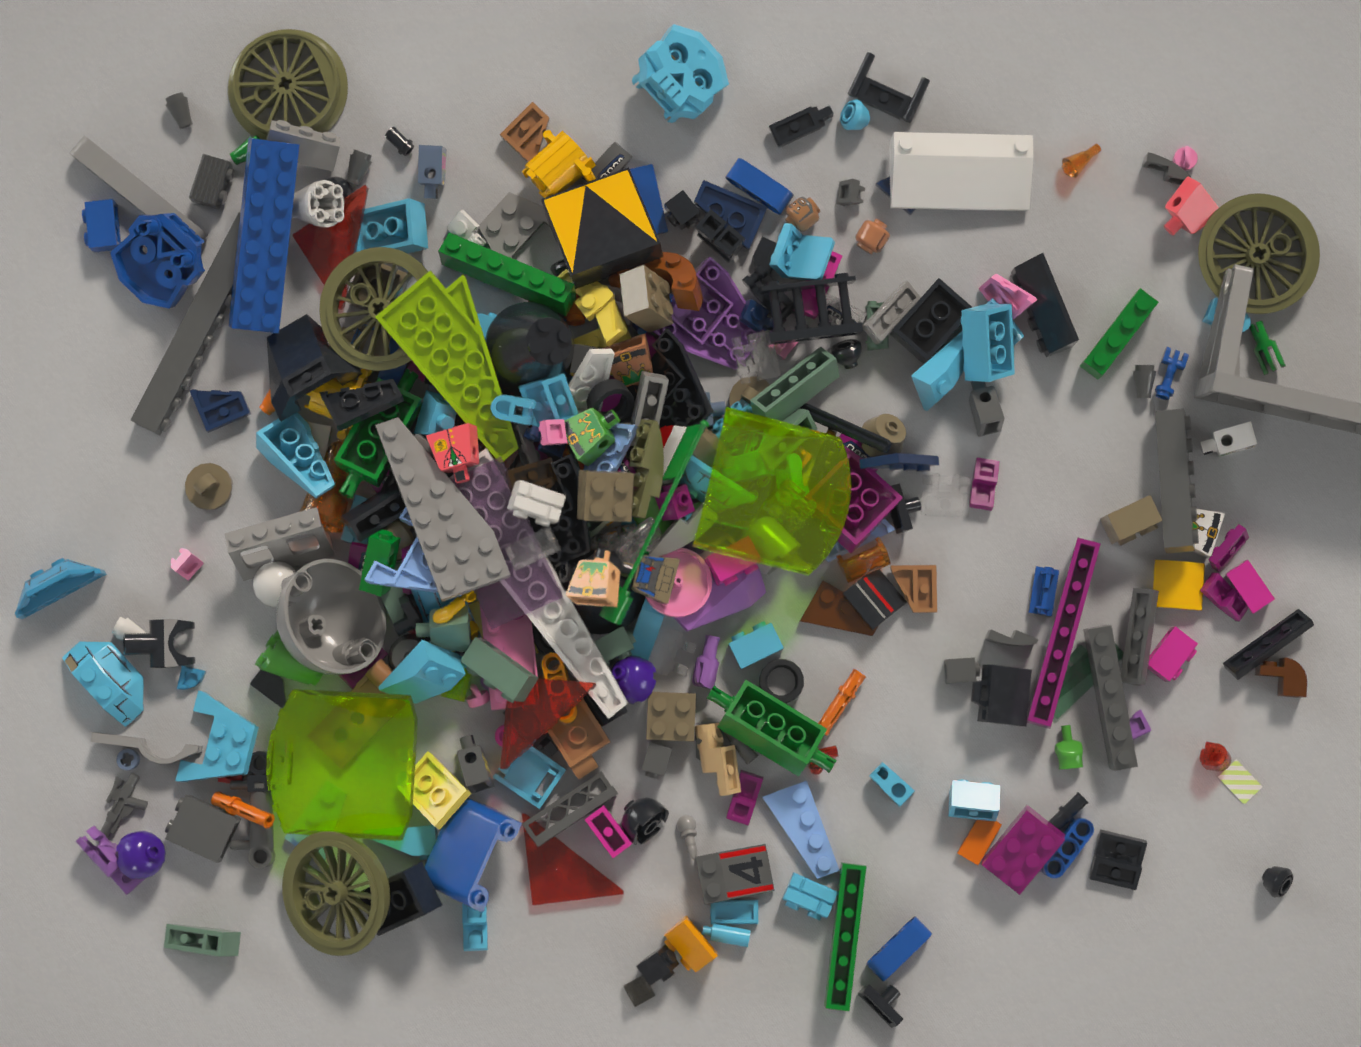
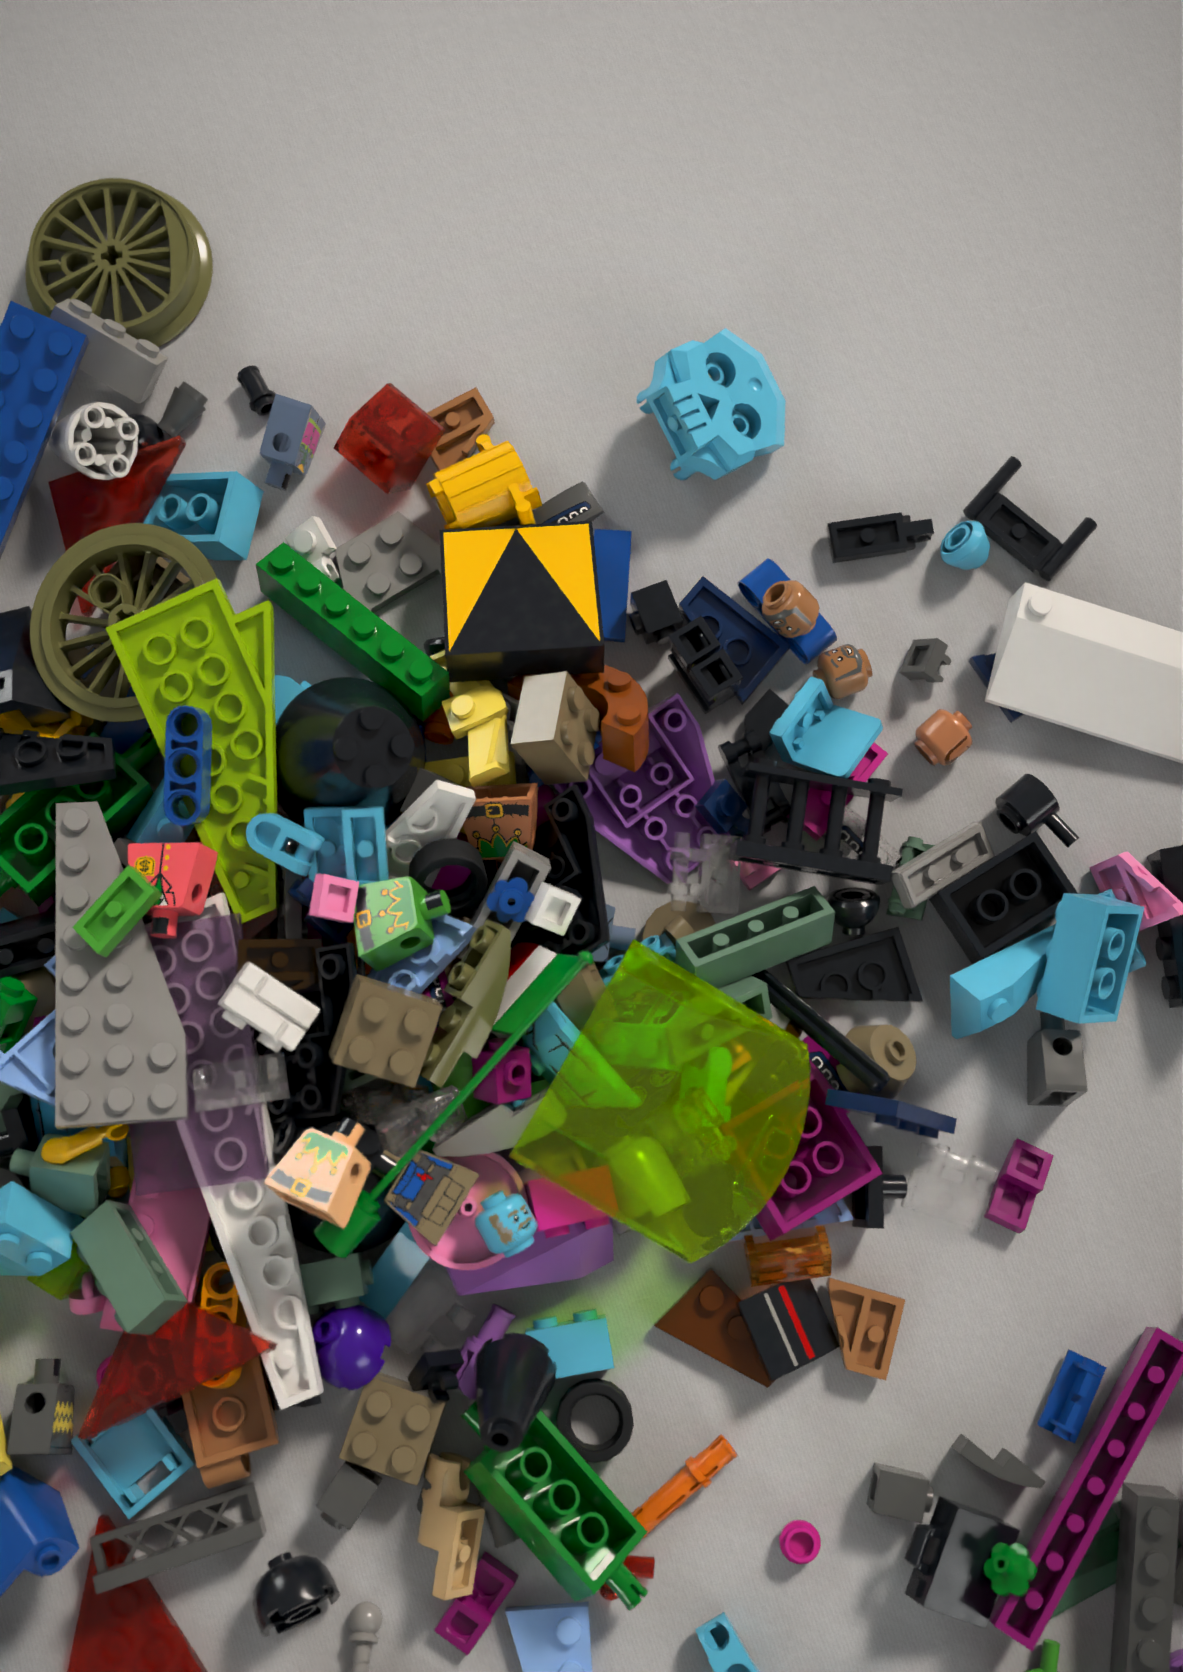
camera: 15 degrees right, 5 degrees down
(435, 474) = (117, 910): none -> bright green plate
(447, 394) = (175, 783): none -> blue beam
(492, 151) = (389, 440): none -> clear red slope
(608, 831) = (226, 1598): dark pink brick -> none
(647, 400) = (516, 889): none -> blue plant
(676, 402) = (552, 908): none -> white tile
(686, 678) = (437, 1373): none -> black tile
(702, 582) = (506, 1223): none -> medium azure head
(730, 670) = (511, 1387): none -> black cone
(760, 187) = (790, 608): none -> medium nougat head
(859, 388) = (859, 969): none -> black wing
(913, 713) = (799, 1542): none -> dark pink plate
(932, 264) = (1029, 806): none -> black piece
(1029, 689) = (1016, 1572): none -> green plant

